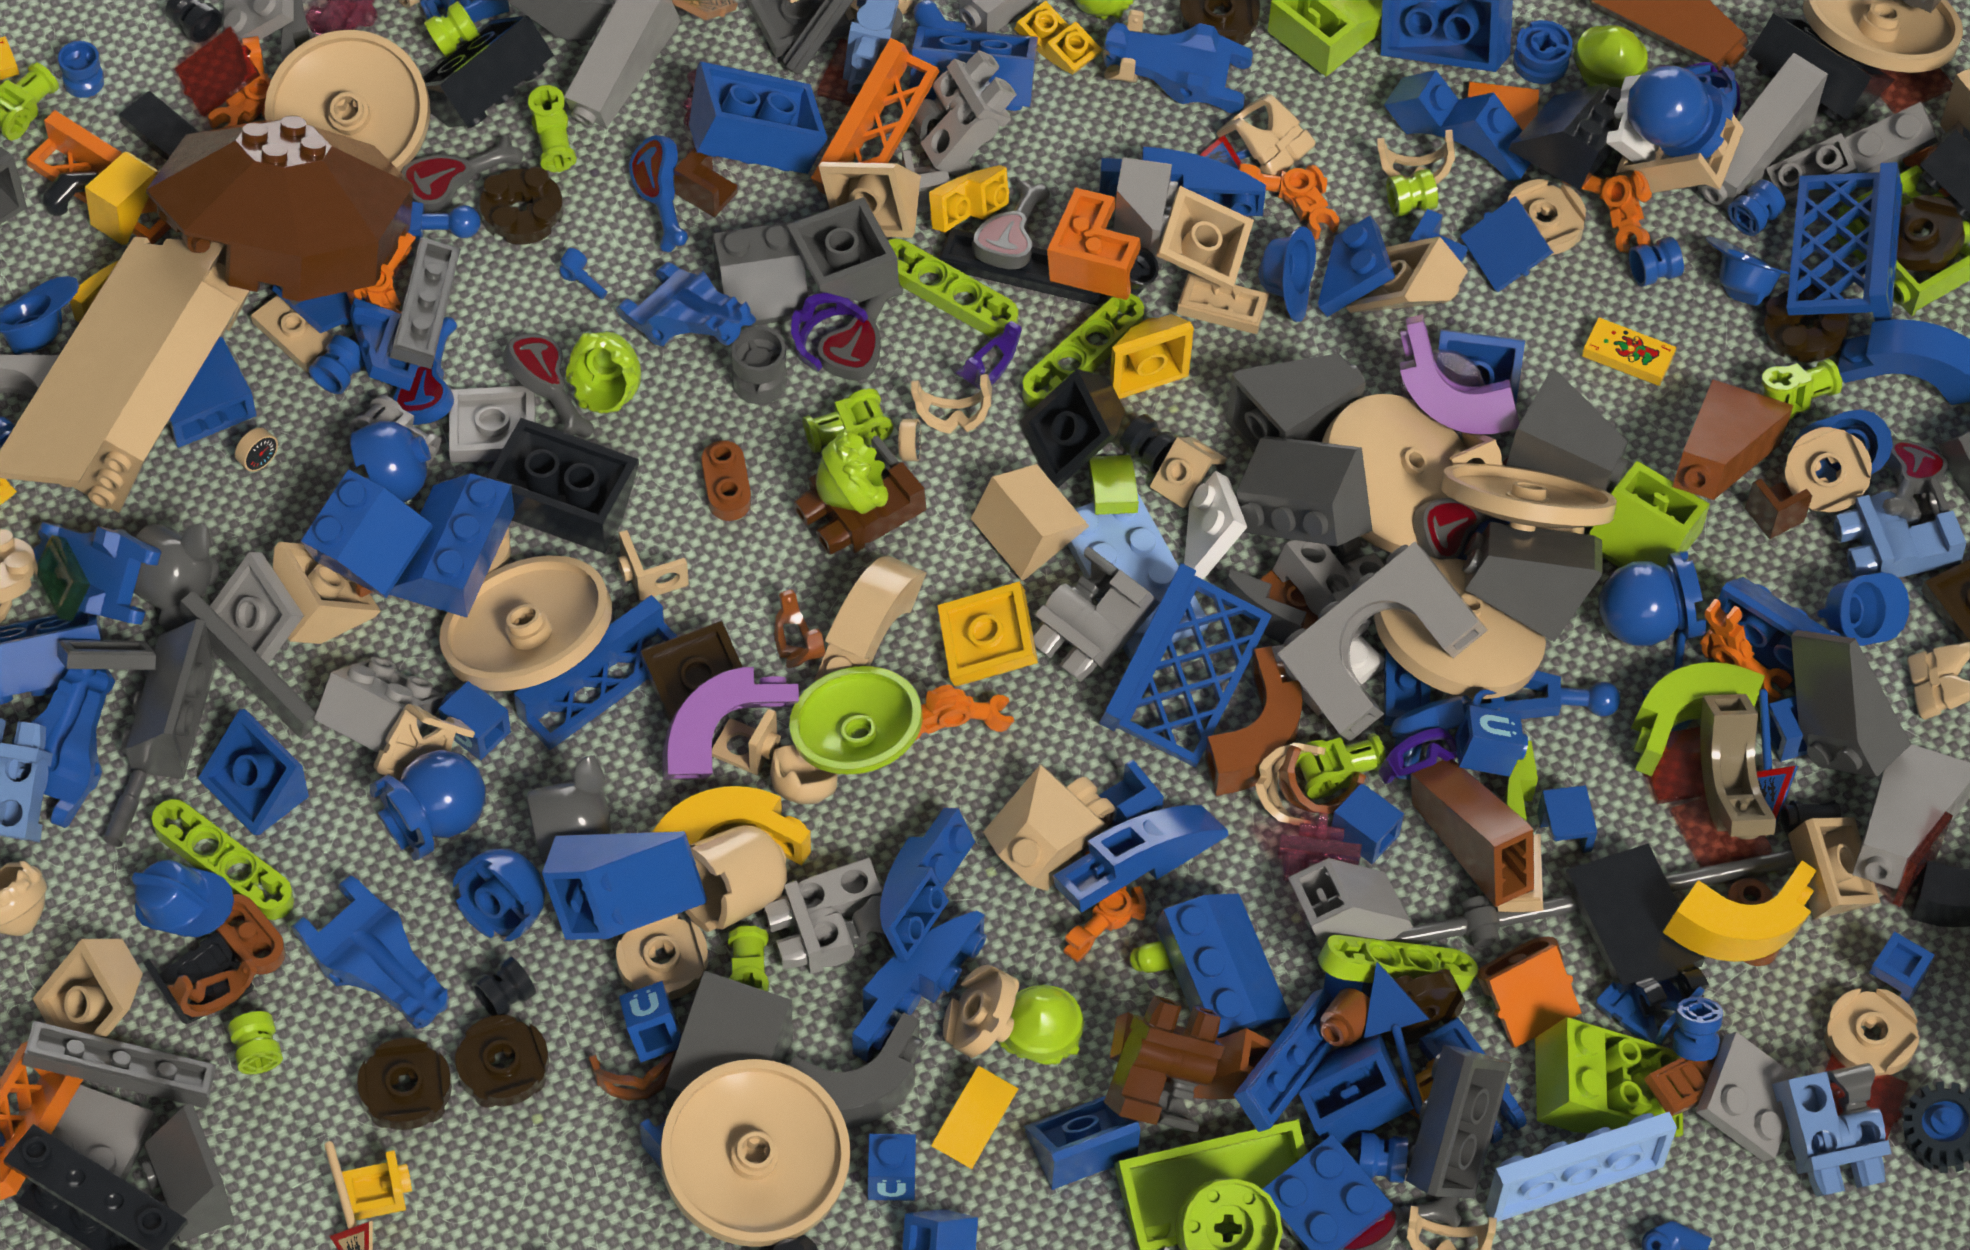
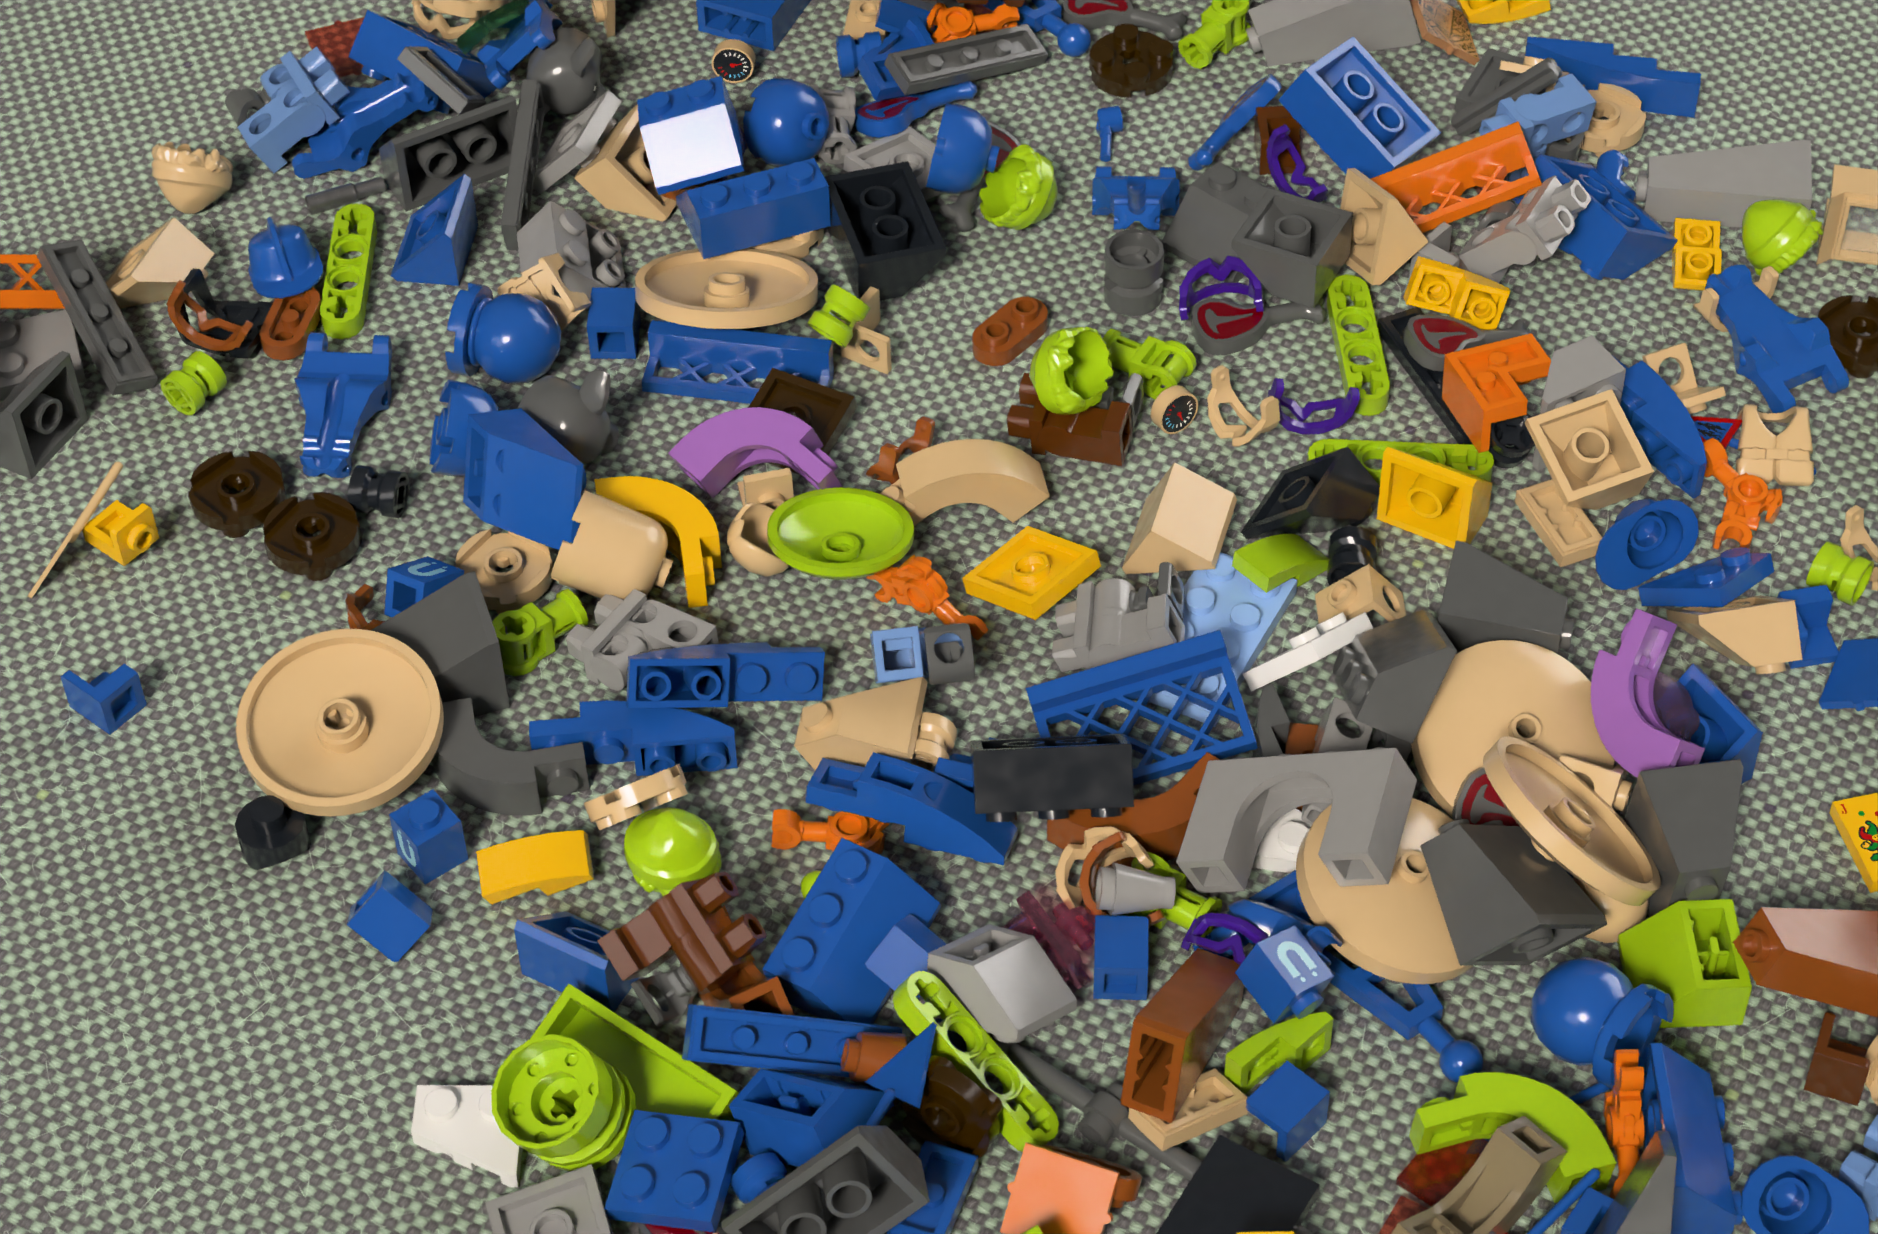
camera: 55 degrees right, 10 degrees down
(544, 379) = (961, 151): none -> blue cylinder
(645, 573) = (845, 307): none -> lime wheel
(781, 207) = (1277, 144): none -> dark purple helmet
(1019, 749) = (933, 652): none -> hips
(1193, 141) = (1686, 387): none -> tan bracket
(1206, 748) = (1052, 776): none -> black slope
(1280, 942) = (903, 952): none -> panel
(1336, 778) = (1131, 890): none -> light grey cone

